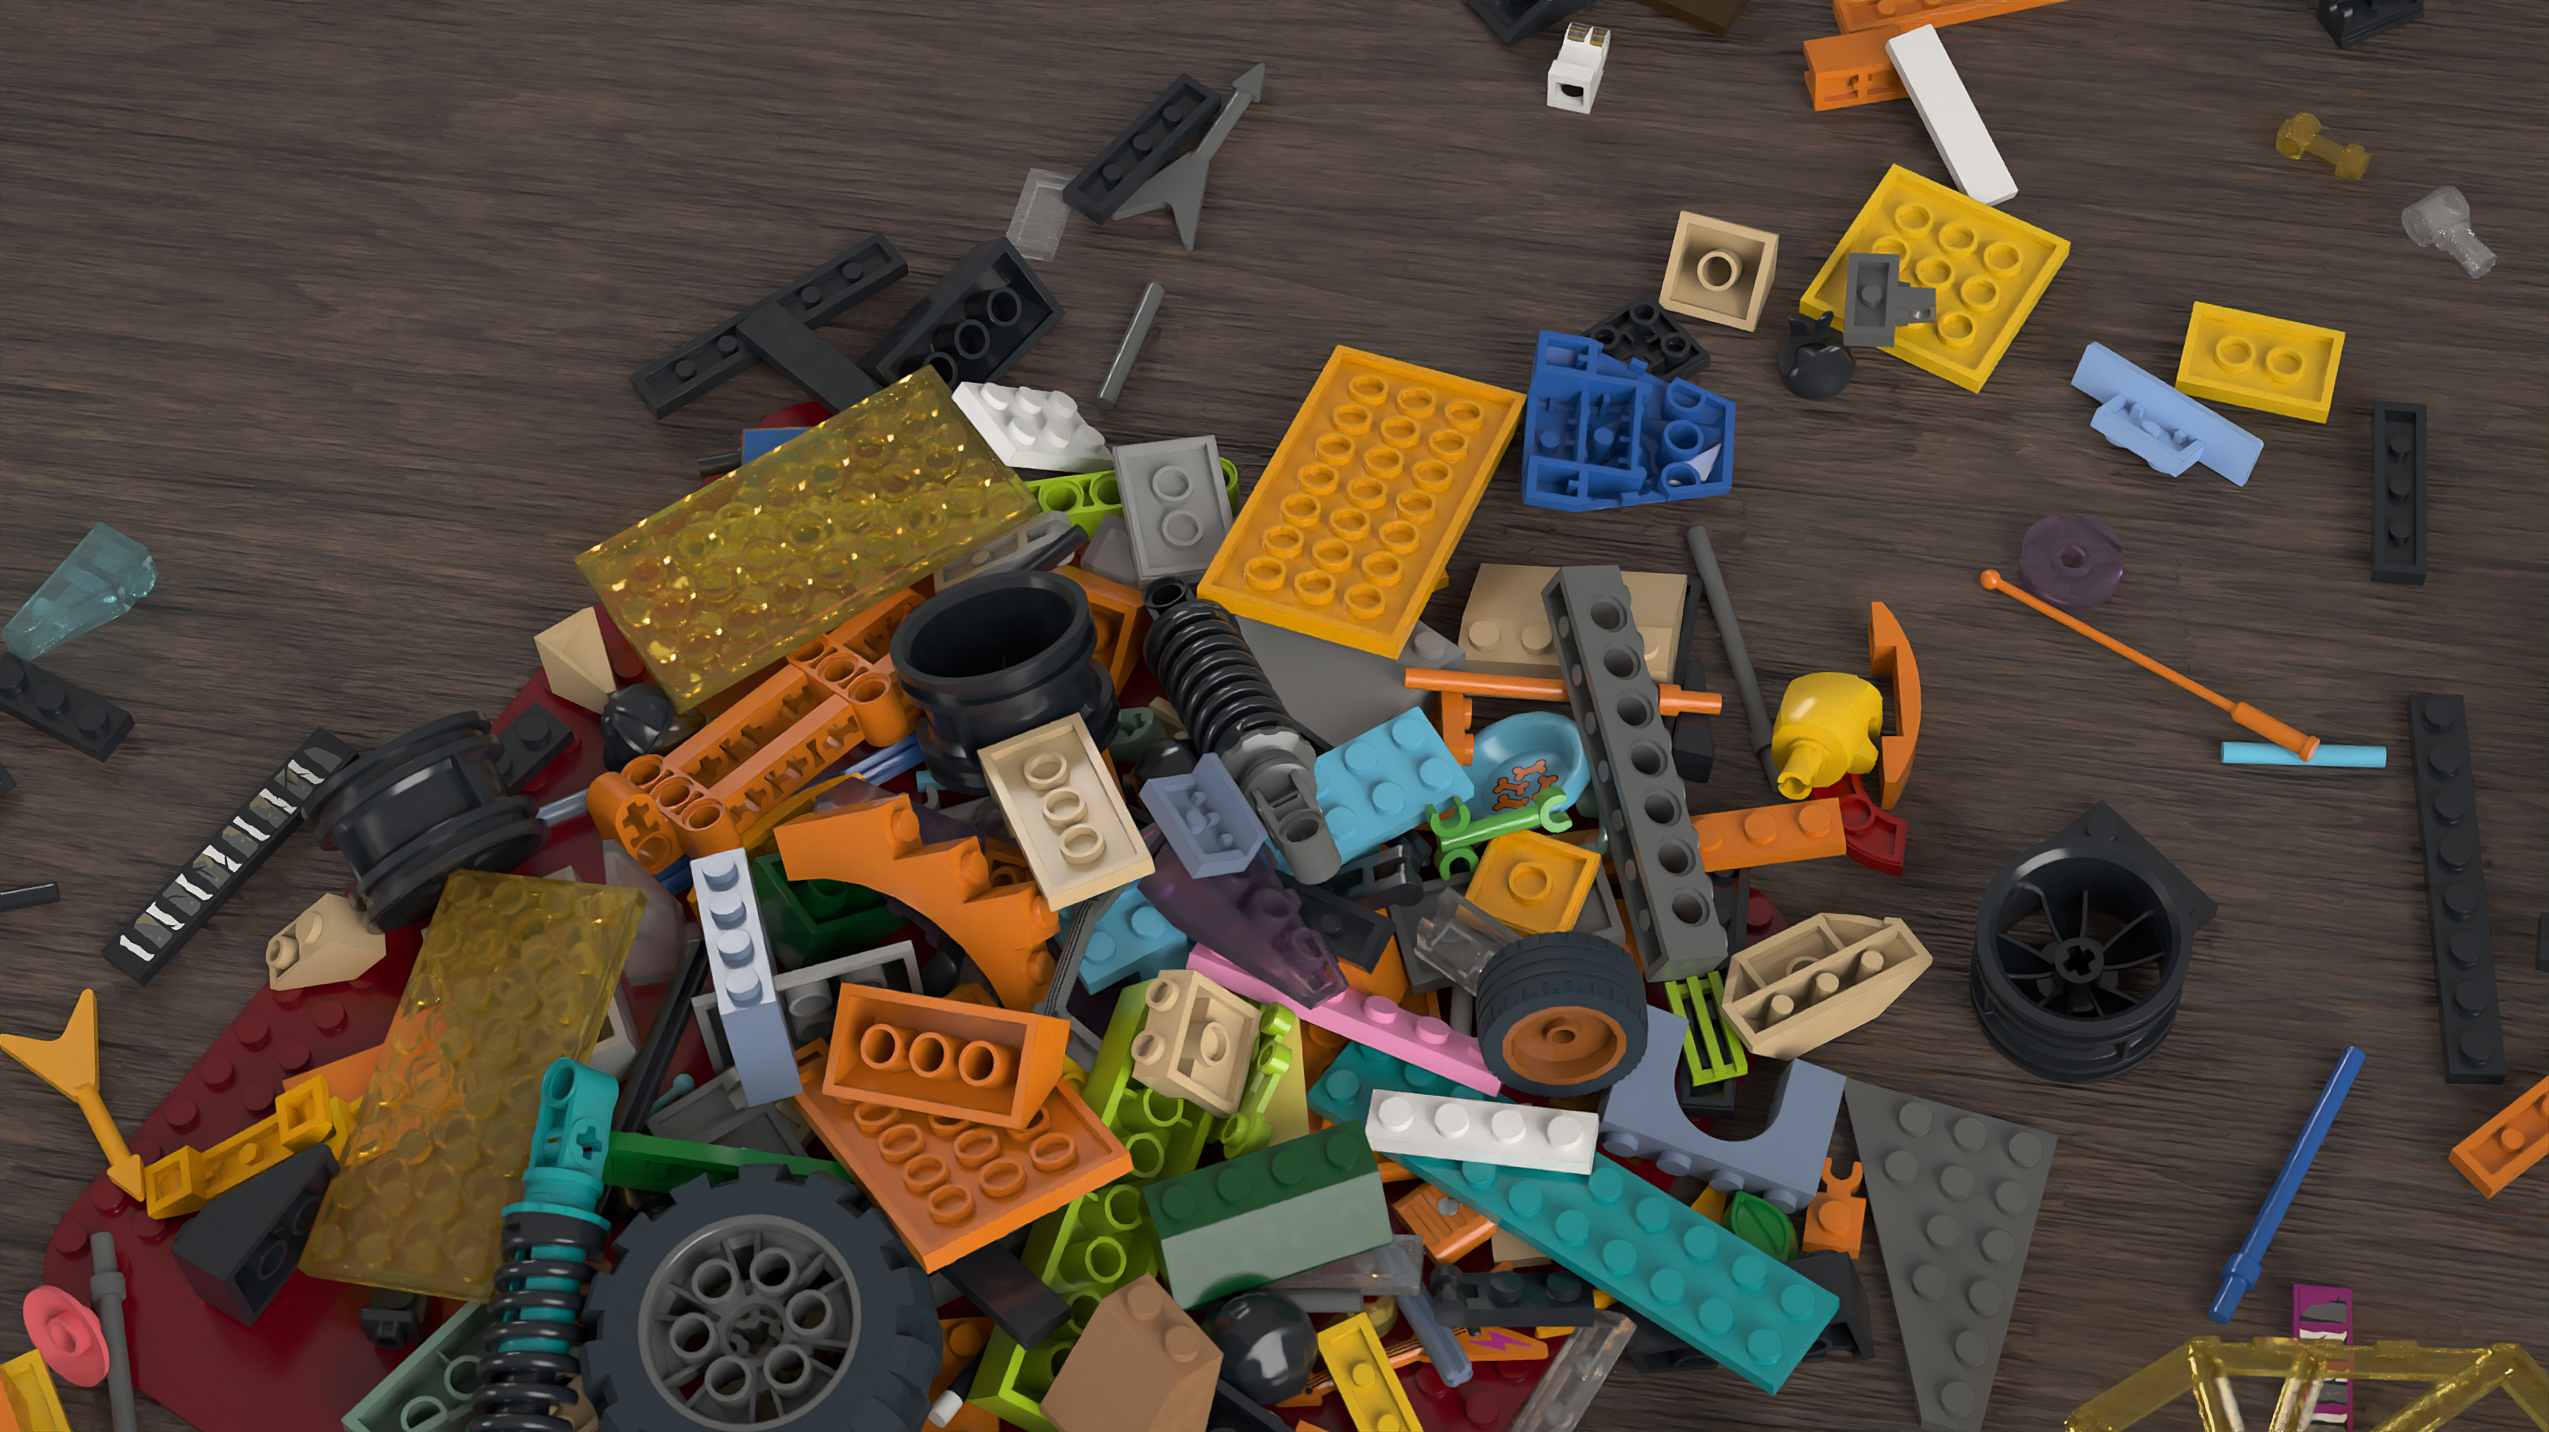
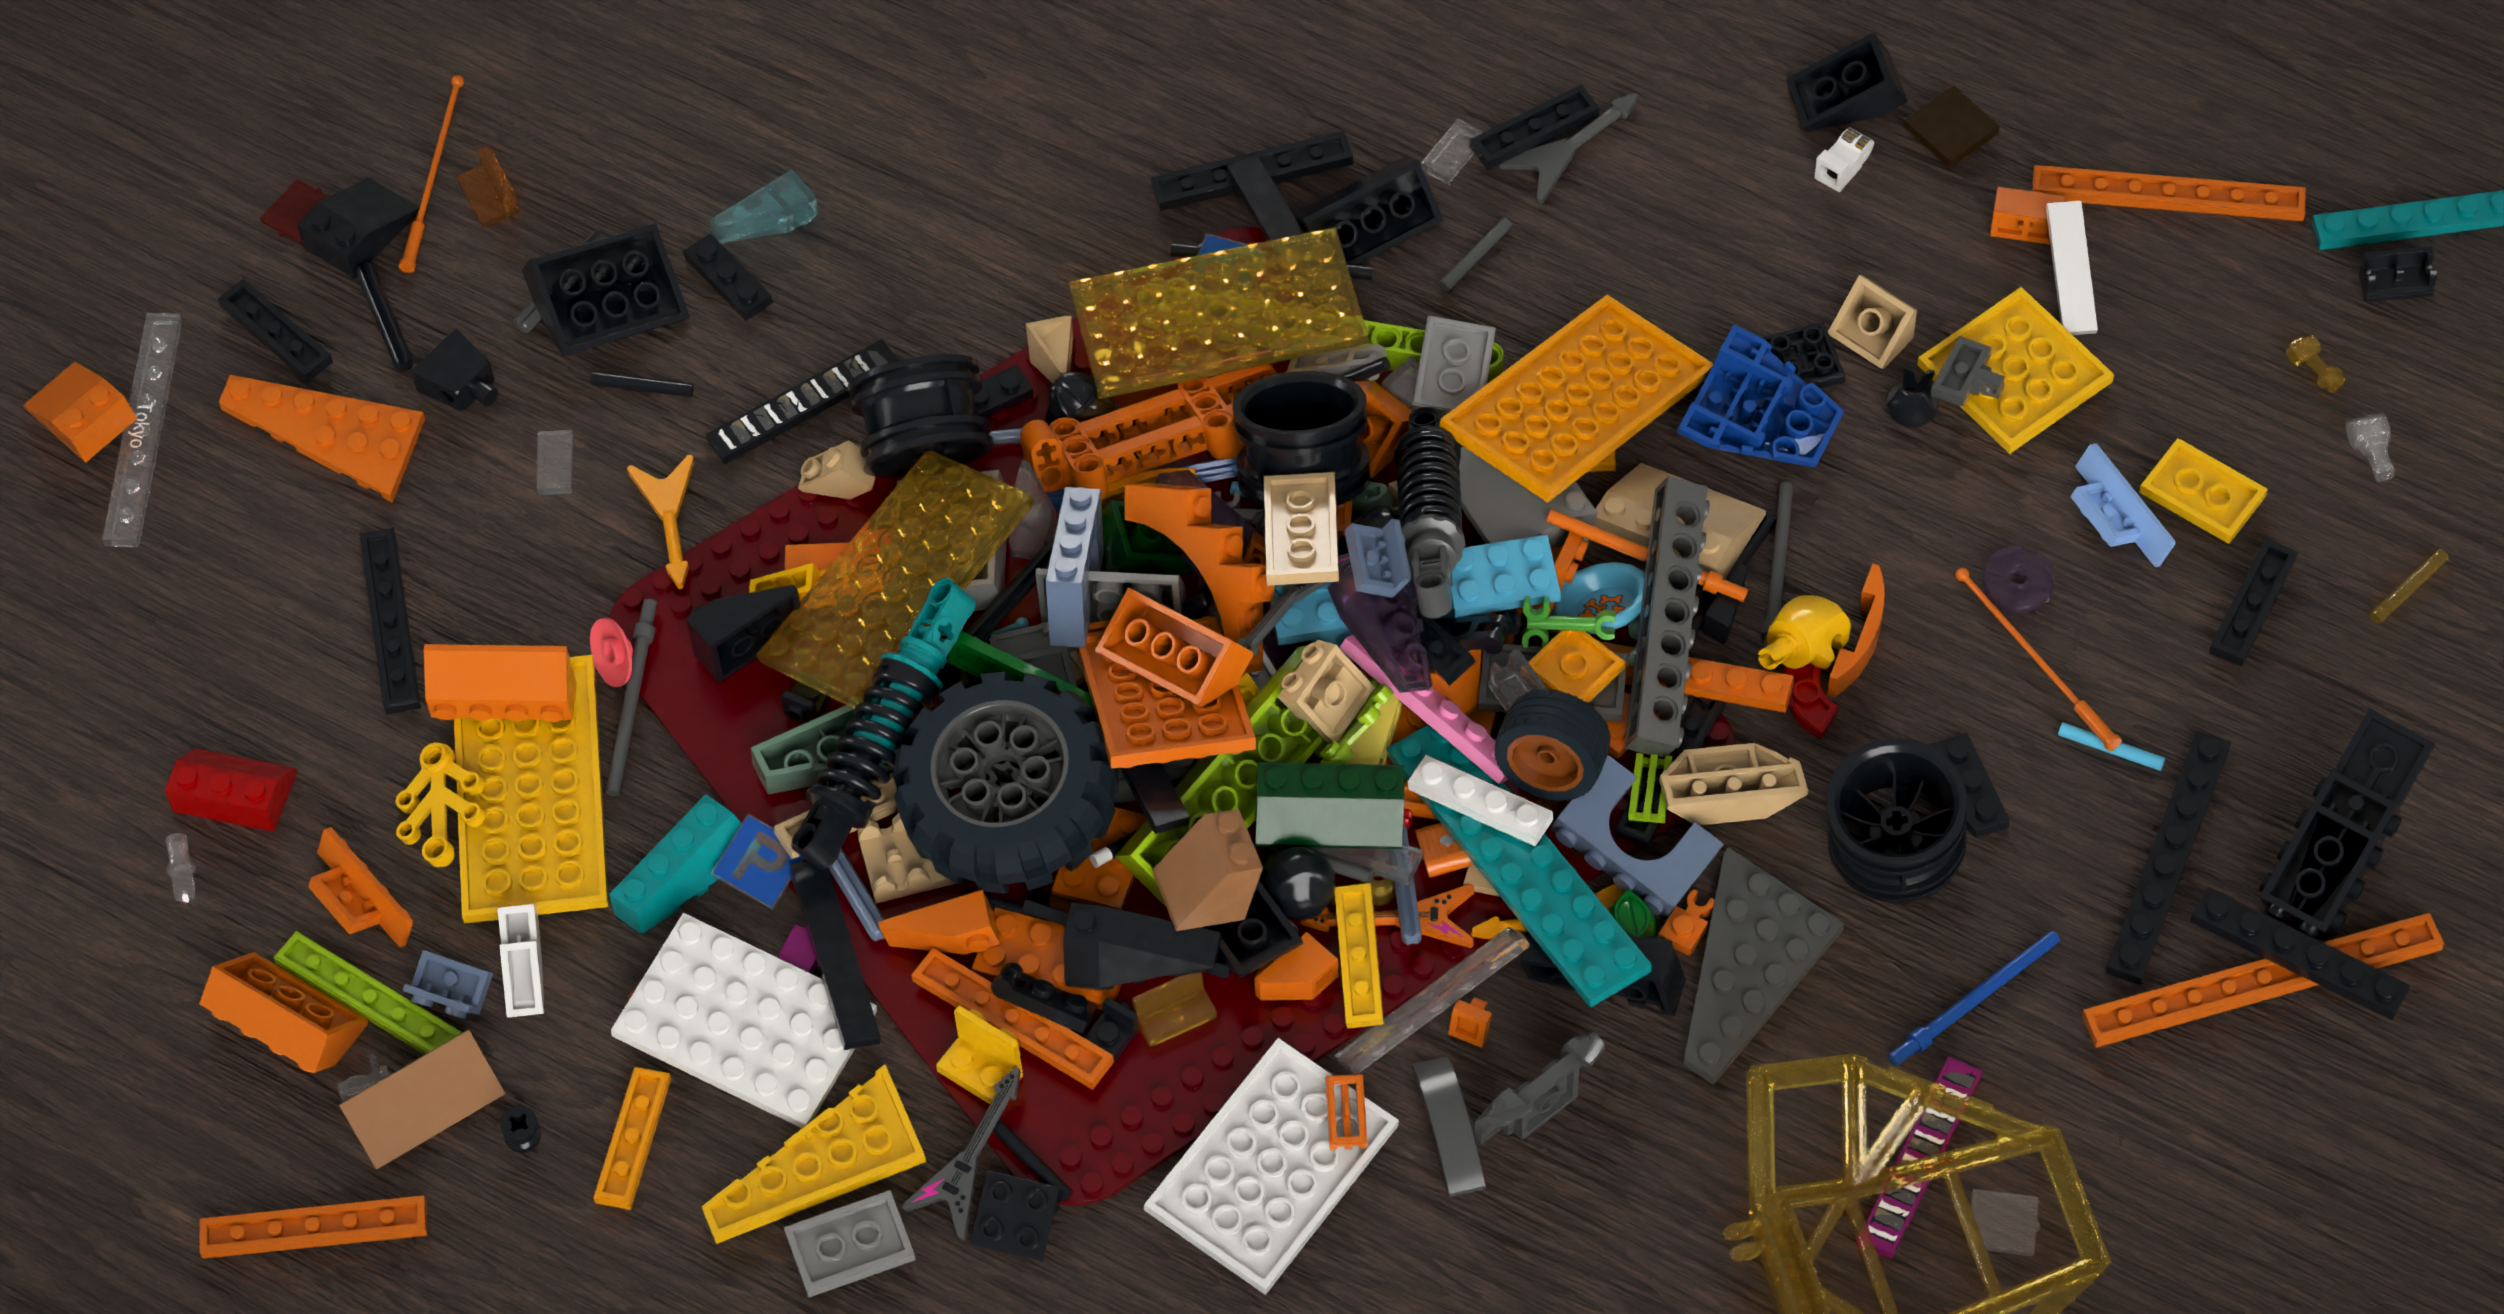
camera: 20 degrees right, 0 degrees up
(192, 1179) = (712, 583): light orange slope -> none
(1033, 428) = (1386, 288): white plate -> none
(1511, 1299) = (1460, 905): black plate -> none

